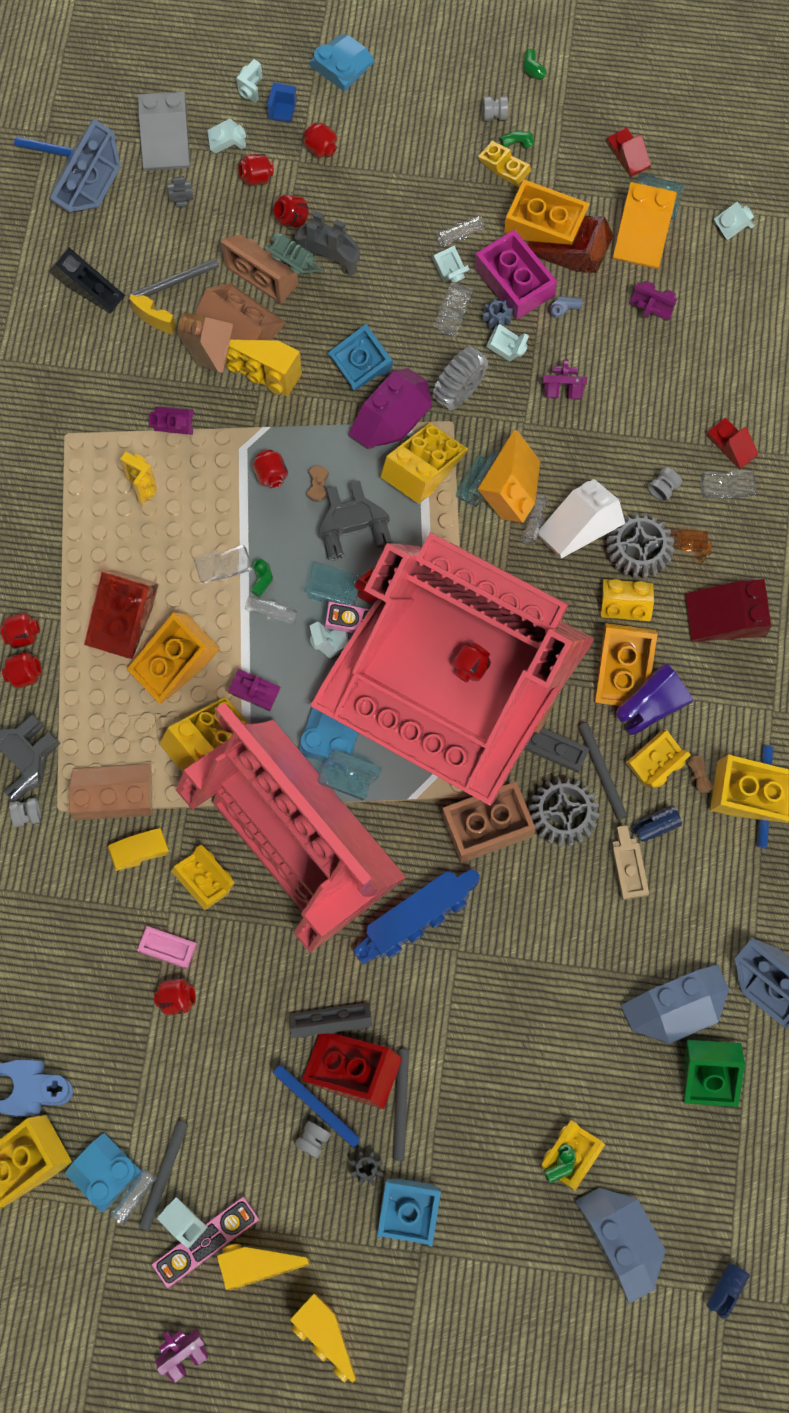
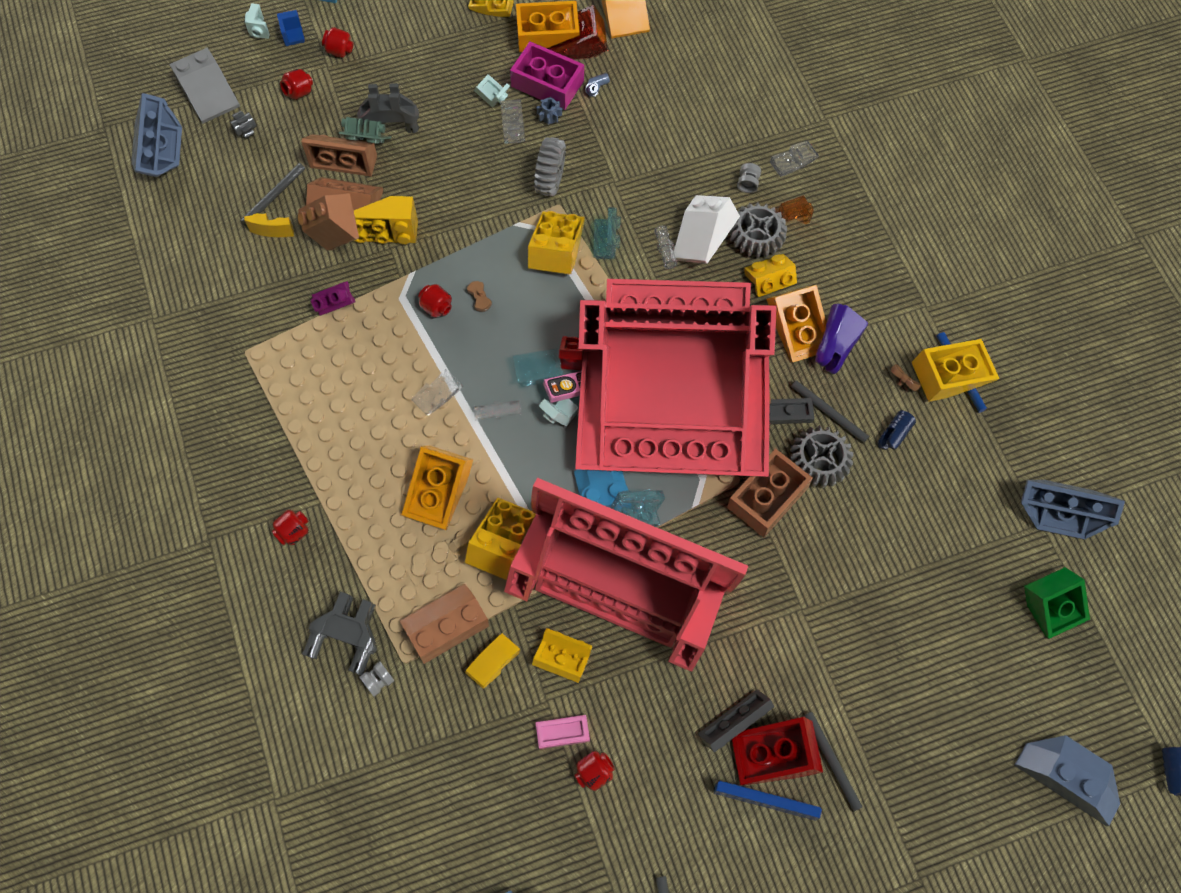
camera: 30 degrees left, 5 degrees down
(22, 670) = (309, 559): red head -> none
(42, 146) = (104, 139): blue bar -> none
(86, 281) = (198, 224): black slope -> none
(120, 613) = (372, 472): clear red slope -> none
(141, 475) = (329, 351): yellow bracket -> none
(226, 135) = (257, 69): light aqua bracket -> none
(254, 690) = (518, 478): magenta hips -> none
(263, 575) = (476, 387): green arm -> none
(291, 210) = (343, 101): red head -> none
(312, 1139) = (779, 830): light grey wheel -> none
(352, 518) = (524, 307): dark grey connector -> none
(361, 357) = (461, 186): dark azure slope -> none
(363, 1176) = (831, 831): dark grey gear -> none
(392, 410) = (508, 215): magenta wedge -> none
(409, 1211) = (895, 847): dark azure slope -> none
(415, 915) = (754, 596): blue hinge -> none
(460, 231) = (485, 63): clear pin -> none
(471, 662) = (690, 370): red head -> none
(507, 343) = (568, 128): light aqua bracket -> none
(512, 480) = (634, 226): light orange slope -> none
(553, 382) = (621, 141): magenta hips -> none
(564, 1165) = (994, 738): green arm -> none
(586, 1148) = (994, 728): yellow bracket -> none
(629, 865) = (895, 473): tan hinge -> none
(653, 301) = (661, 52): magenta hips -> none
(657, 760) = (868, 382): yellow bracket -> none
(679, 1006) = (999, 565): sand blue wedge -> none
(729, 611) = (852, 247): dark red slope -> none
(733, 443) = (782, 129): red slope -> none

